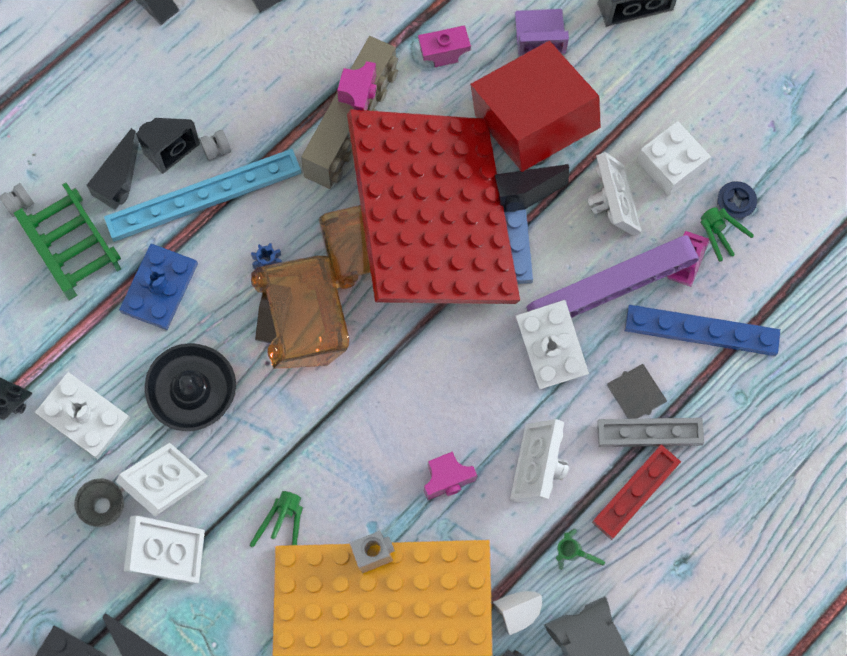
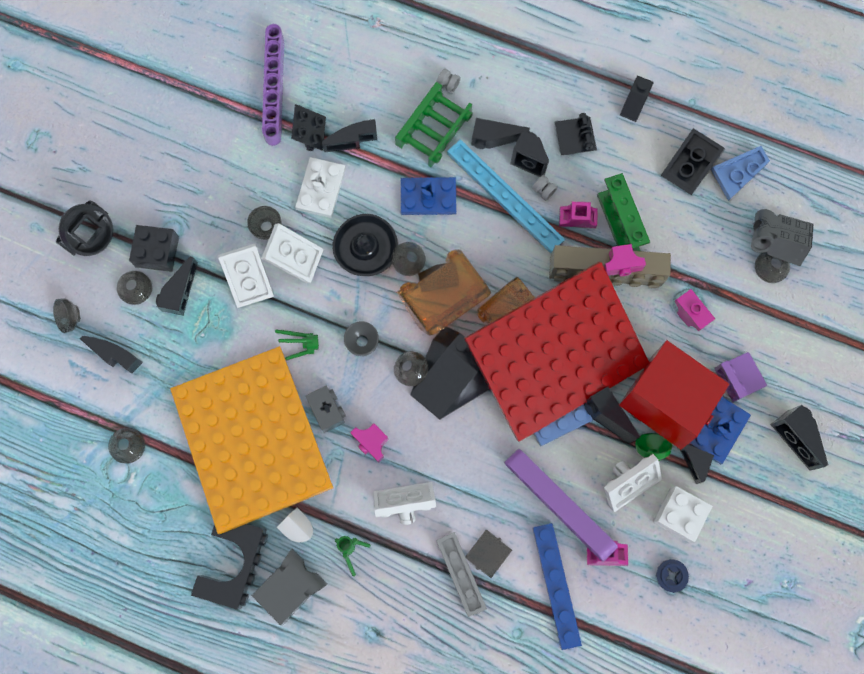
camera: 70 degrees right, 5 degrees up
(33, 347) = (351, 136): none -> black slope
(163, 83) = (575, 135): none -> black hinge
(230, 349) = (402, 264): none -> clear smoke piece
(265, 251) = (477, 251): blue gear -> none
(269, 121) = (578, 215): none -> dark pink brick
(295, 70) = (622, 213): none -> green fence
(309, 425) = (359, 329): none -> dark grey piece
(361, 546) = (287, 404): light grey brick -> none
(387, 390) = (416, 373): none -> clear smoke piece
(396, 523) = (326, 420): none -> dark grey brick
(401, 350) = (451, 376): none -> black wedge
(552, 344) = (496, 477): white plate -> none
(581, 153) = (653, 444): none -> green piece
(599, 76) = (722, 430): none -> blue plate
(622, 118) = (697, 462): none -> black slope
(636, 492) = (413, 580): red plate -> none
(714, 221) = (645, 564): green plant -> none

